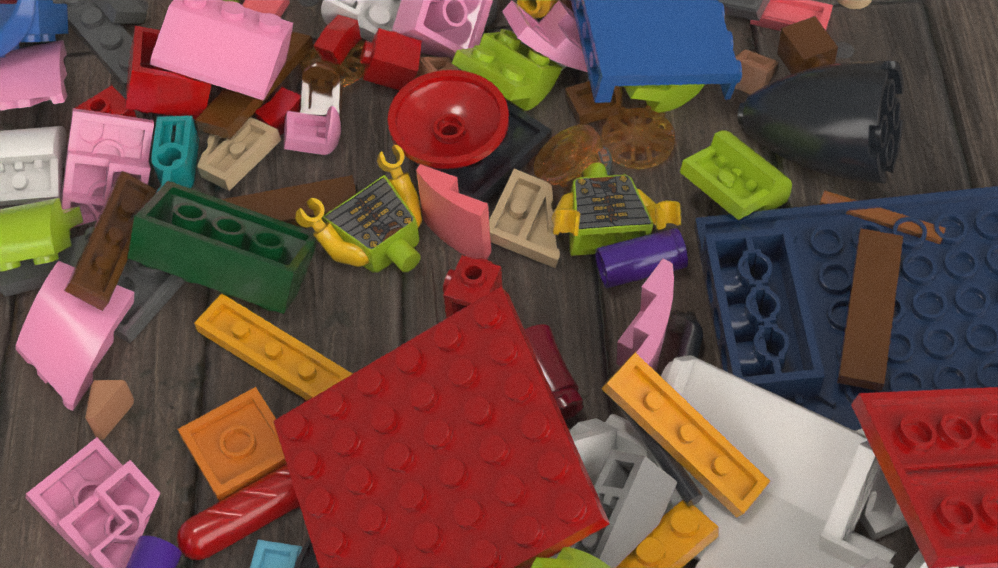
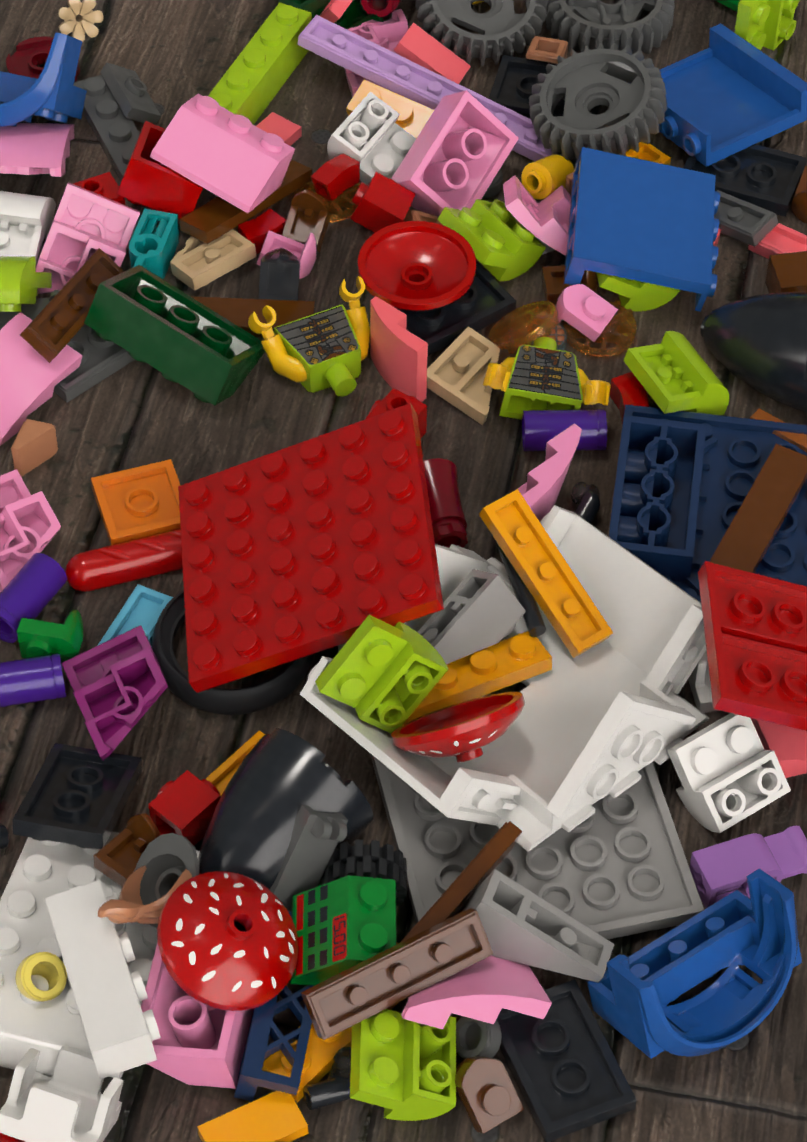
camera: 10 degrees right, 5 degrees down
(268, 348) = (187, 427): light orange plate -> none
(311, 157) = (279, 275): none -> black plate
(623, 126) = (584, 310): none -> bright pink plate
(693, 203) = (628, 391): none -> red piece
(756, 71) = (732, 287): nougat slope -> none

